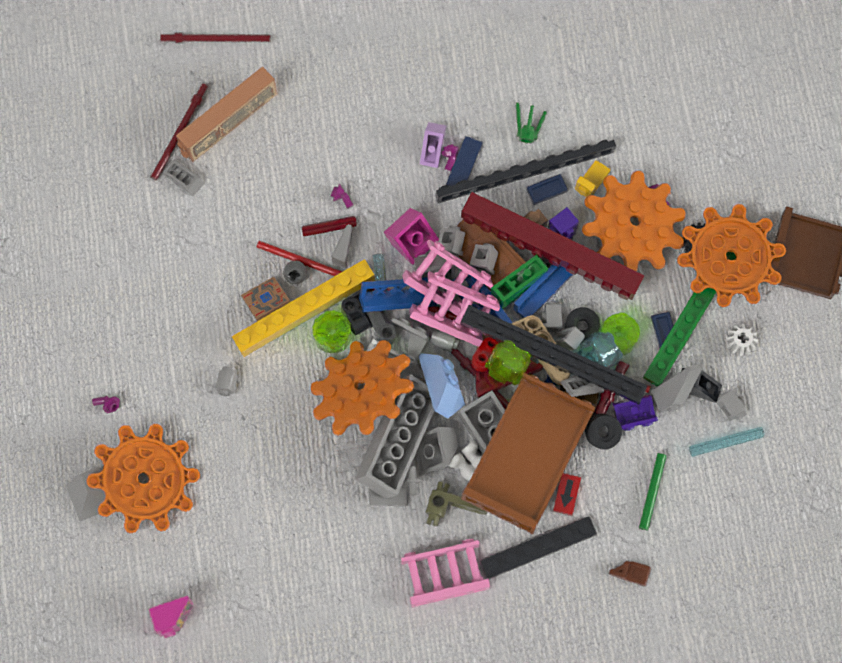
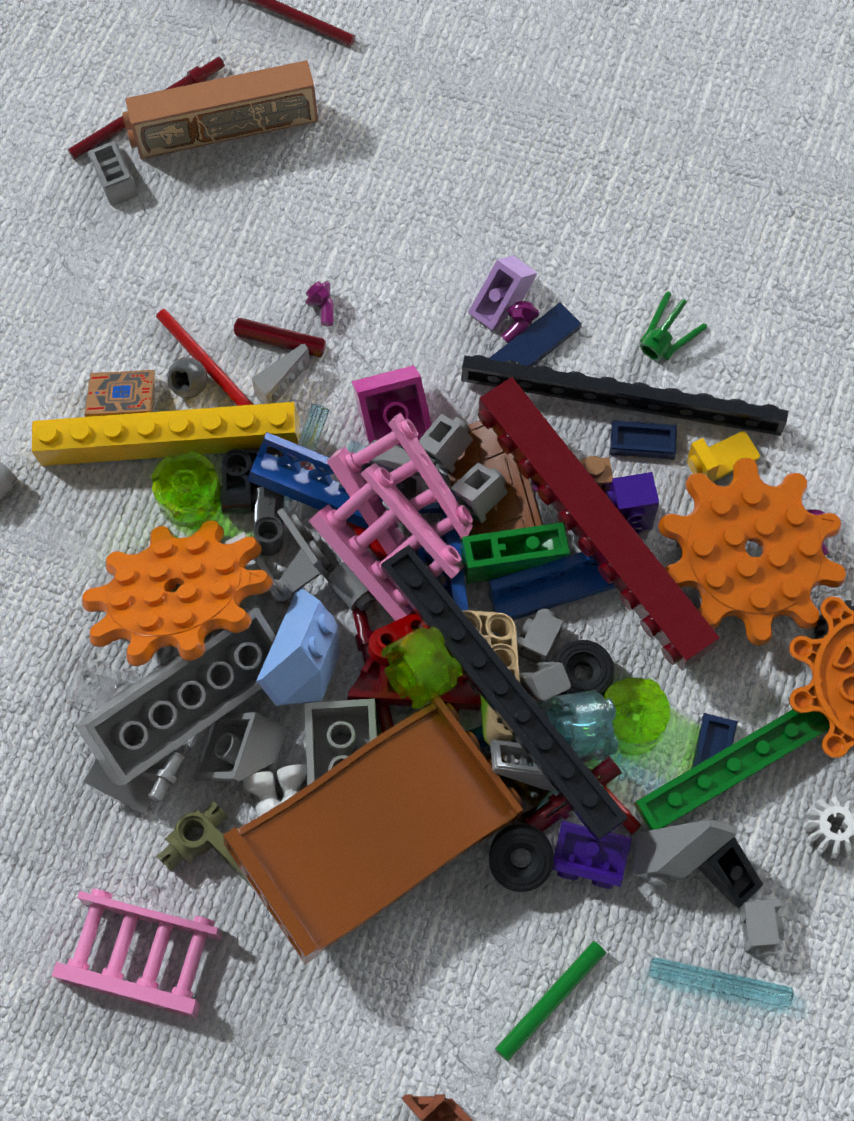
camera: 30 degrees right, 5 degrees down
(538, 548) = (312, 993): black plate -> none
(567, 494) = (407, 930): red tile -> none

